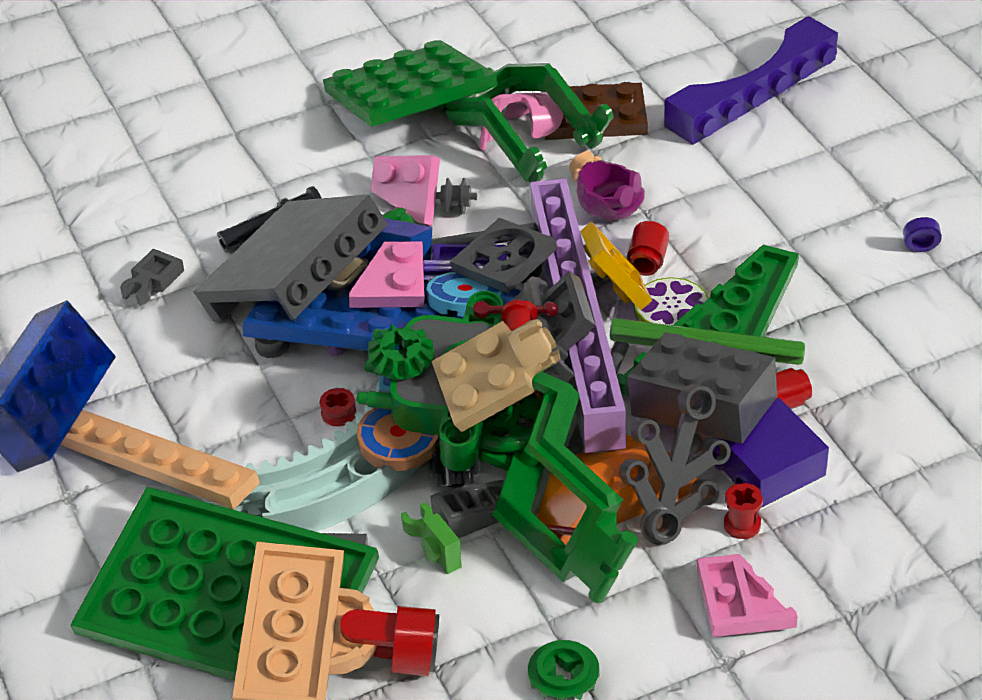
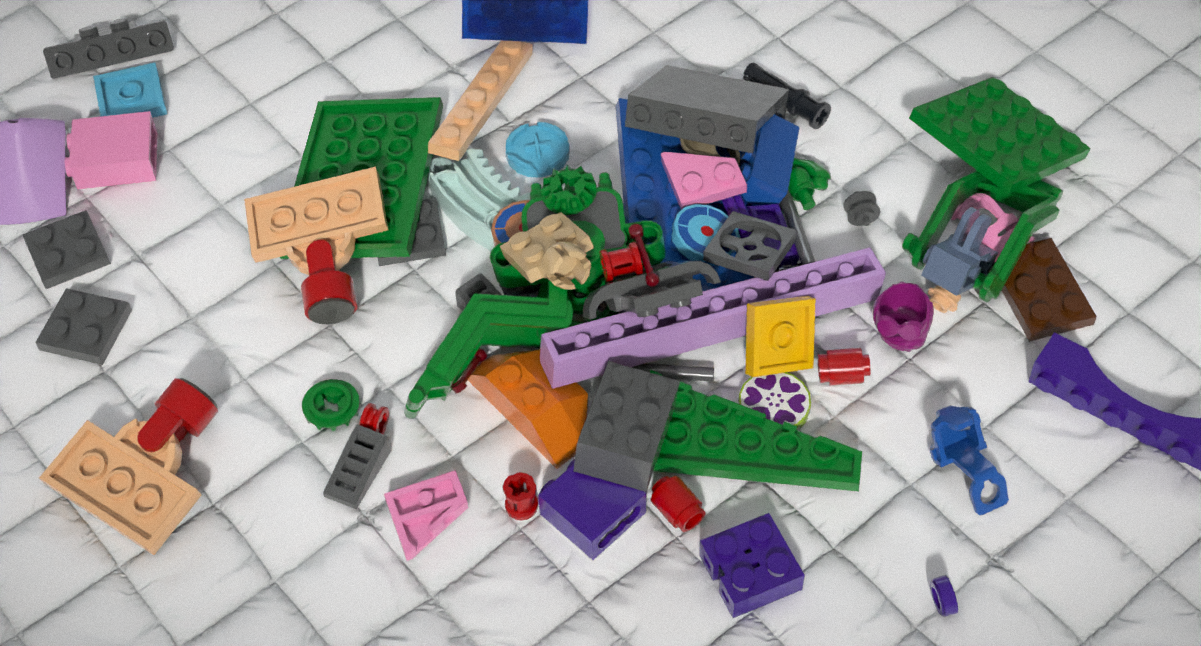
camera: 75 degrees right, 10 degrees up
(152, 272) = (694, 40): dark grey plate -> none
(247, 434) = (537, 149): none -> medium azure tile
(408, 183) = (860, 169): bright pink wing -> none
(439, 540) = (440, 293): bright green plate -> none
(560, 132) = (962, 256): none -> sand blue brick
(603, 627) = (375, 418): none -> red bush
(642, 633) = (368, 446): none -> dark grey slope
(649, 333) = (709, 430): bright green axle -> none
(675, 470) = (496, 439): dark grey plant -> none
(764, 195) = (963, 450): none -> blue piece
(862, 353) = (751, 565): none -> dark purple piece

